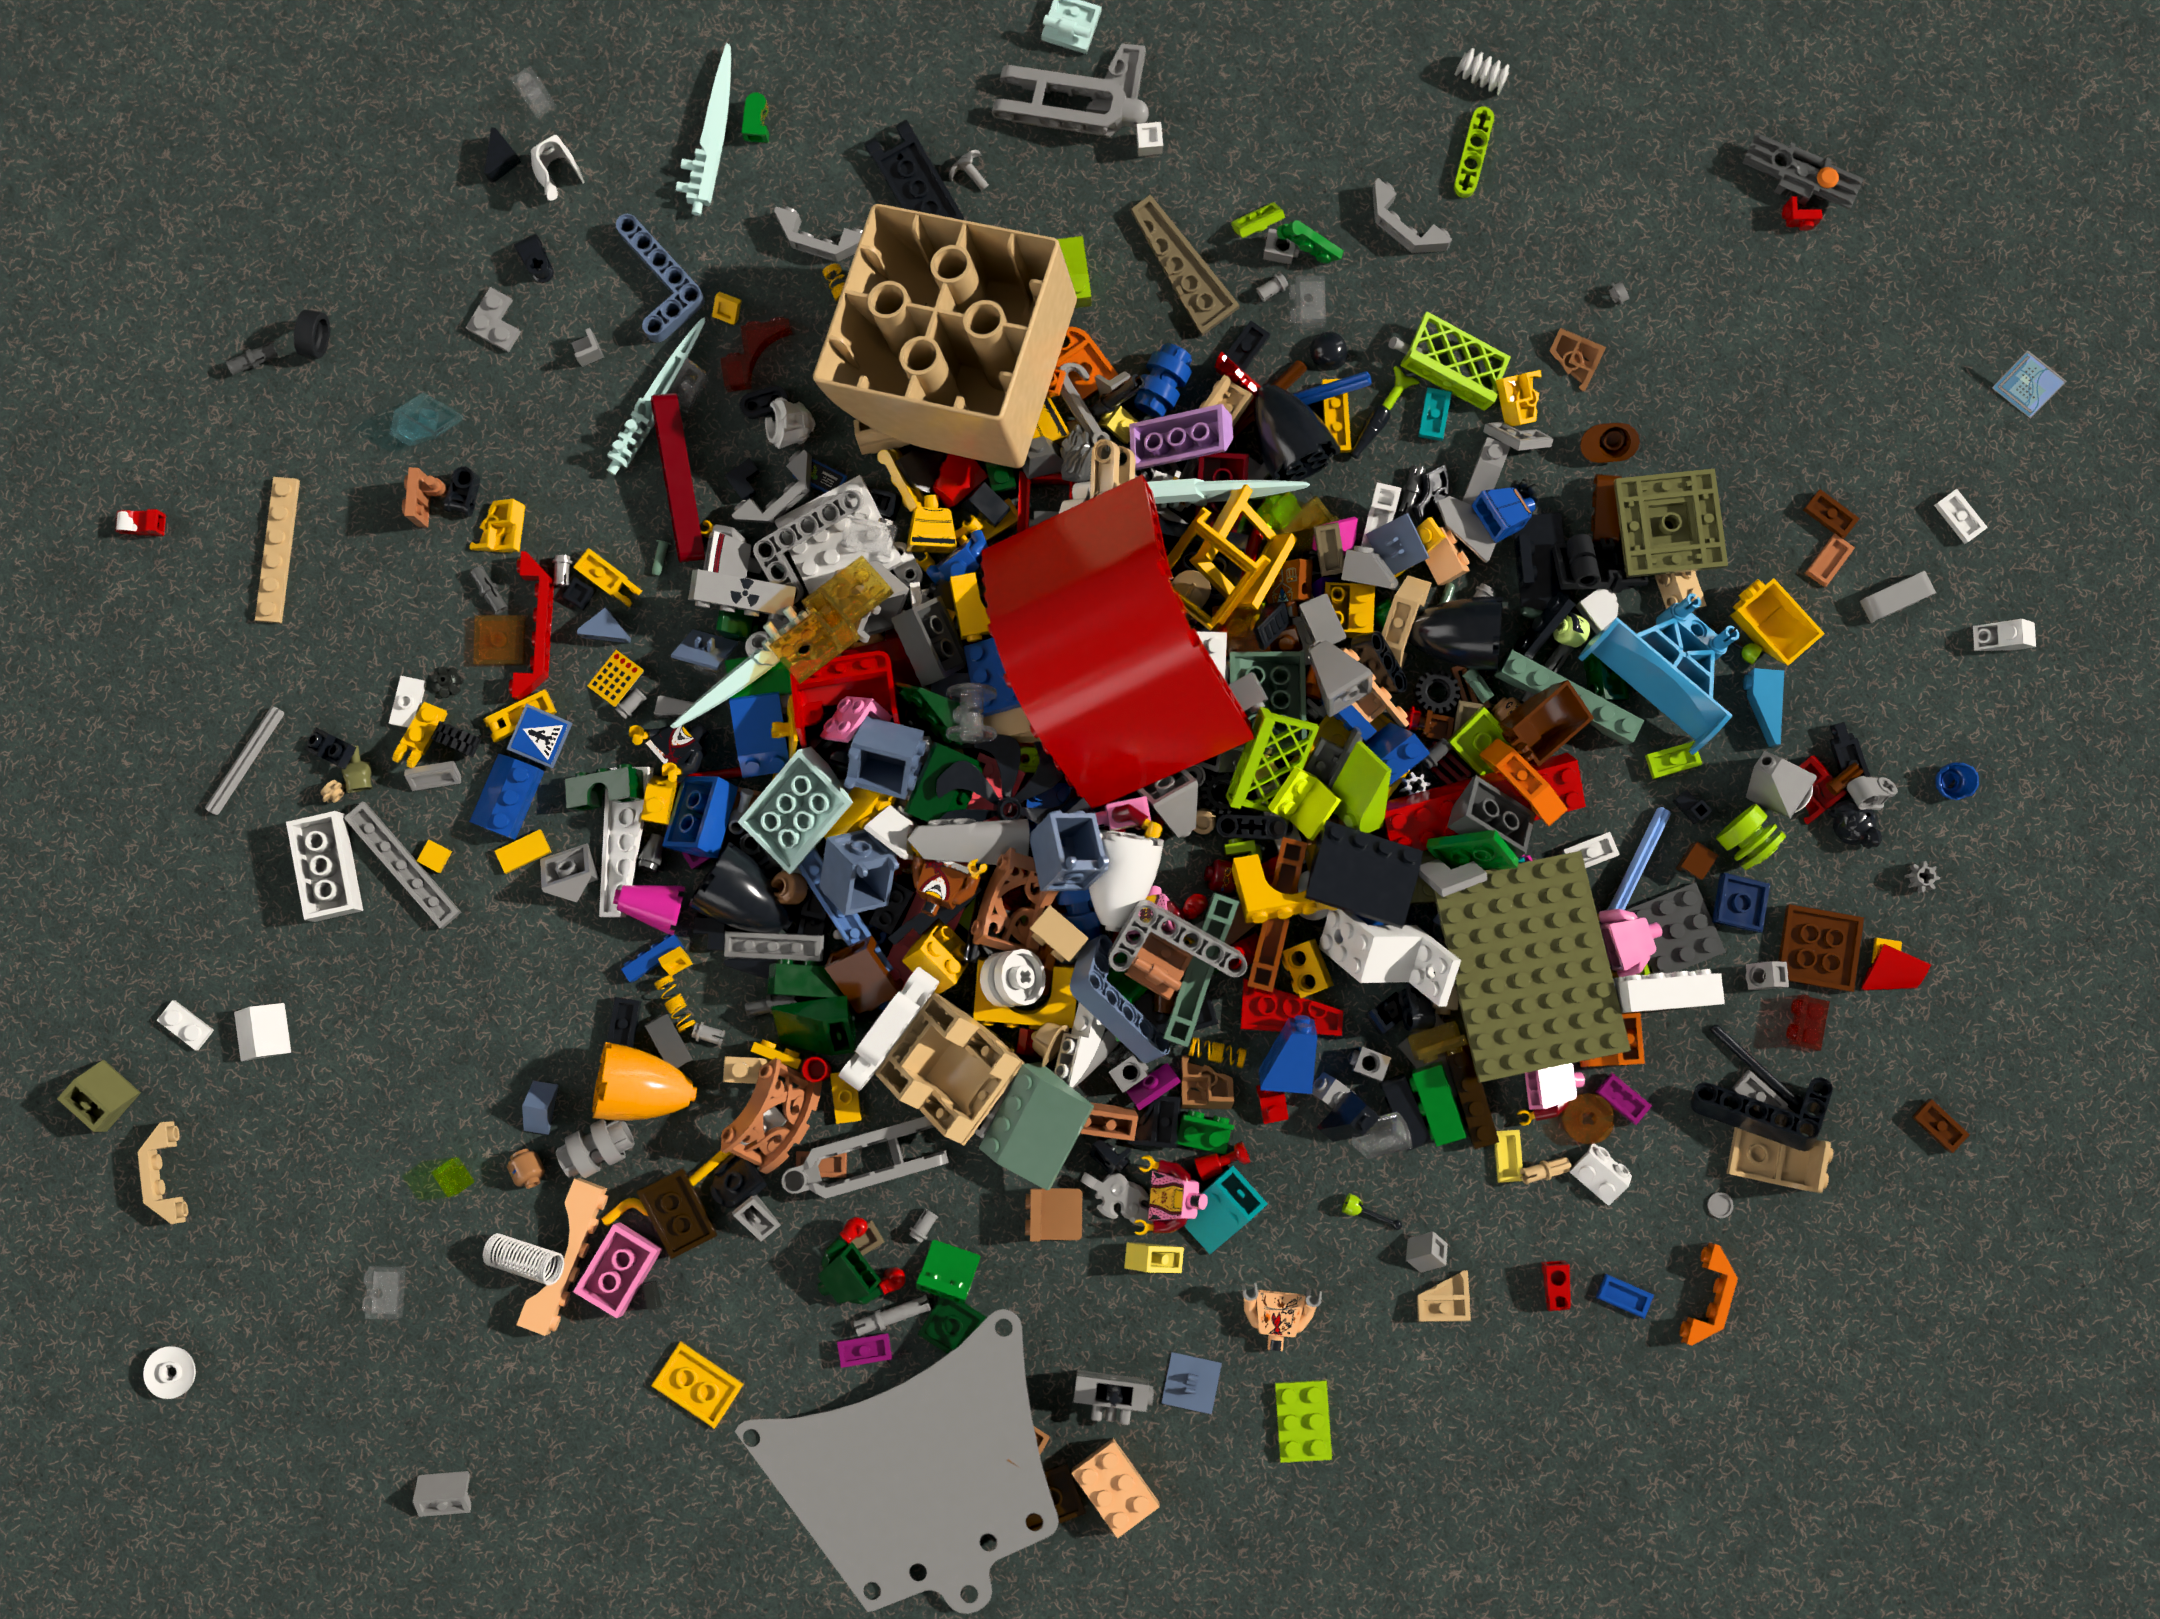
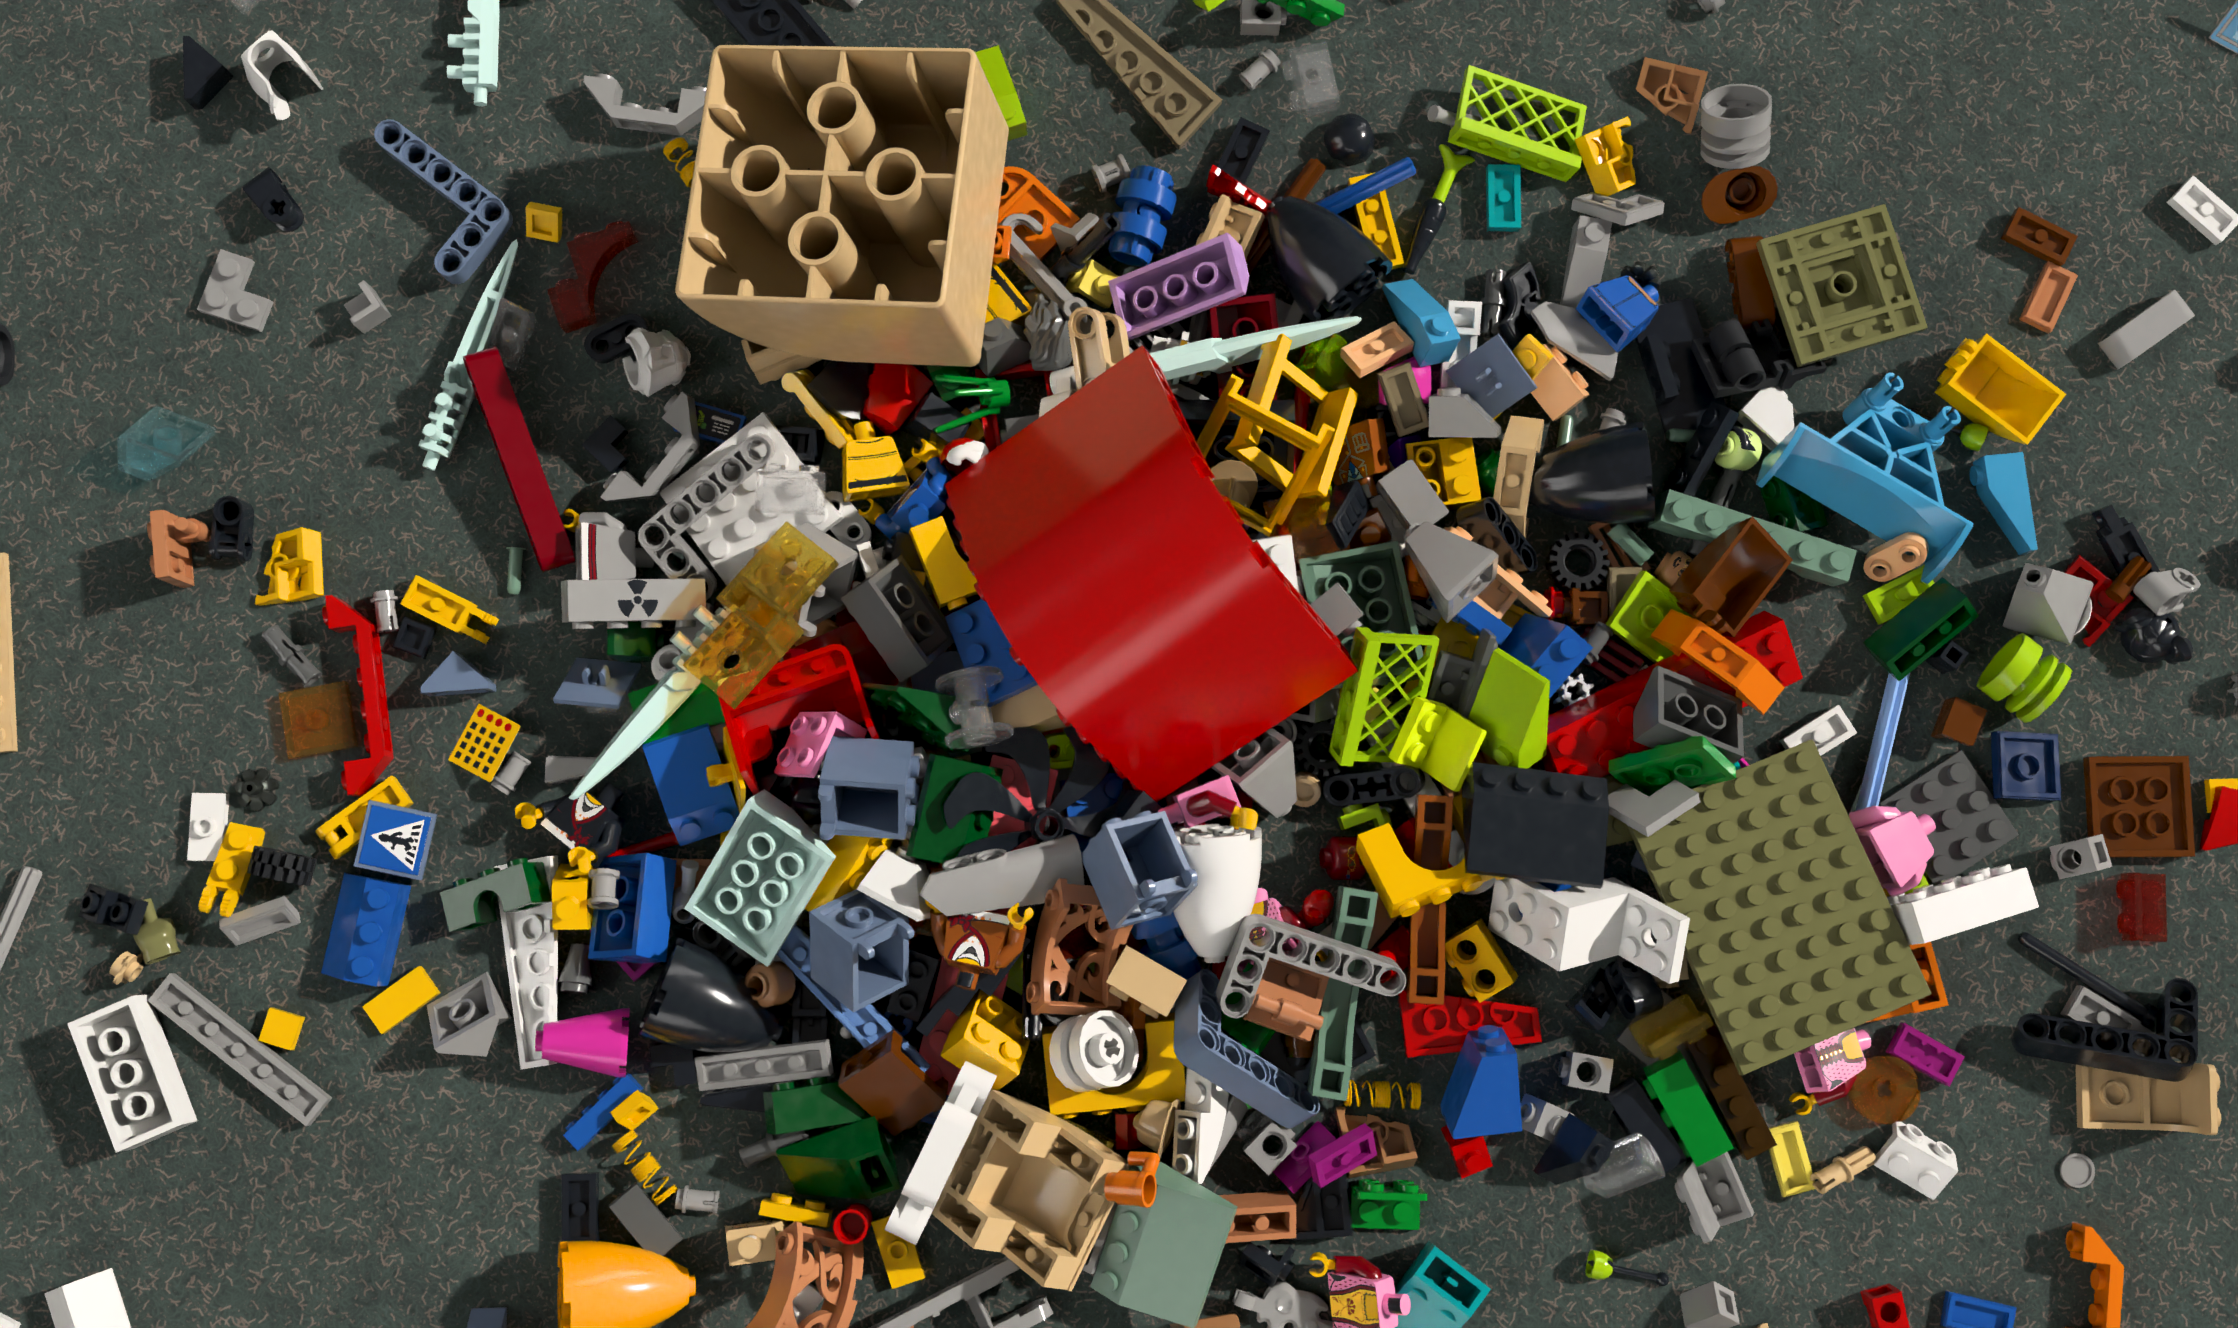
camera: 20 degrees left, 0 degrees up
(682, 796) = (603, 888): none -> light grey bush
(998, 530) = (962, 453): none -> hair
(1023, 1076) = (1134, 1187): none -> orange piece
(1028, 491) = (991, 393): none -> green plant
(1140, 344) = (1100, 172): none -> light grey bush
(1179, 1088) = (1342, 1155): none -> magenta plate
(1212, 1164) = (1404, 1247): red piece -> none
(1317, 509) = (1377, 349): none -> light nougat plate
(1355, 495) = (1423, 322): none -> dark azure slope
(1444, 1169) = (1712, 1195): none -> light grey bracket
(1616, 391) = (1736, 126): none -> light grey wheel
(1671, 731) = (1893, 559): none -> light nougat plate
(1676, 587) = (1862, 369): tan bracket -> none
(1680, 786) = (1921, 628): none -> dark green brick

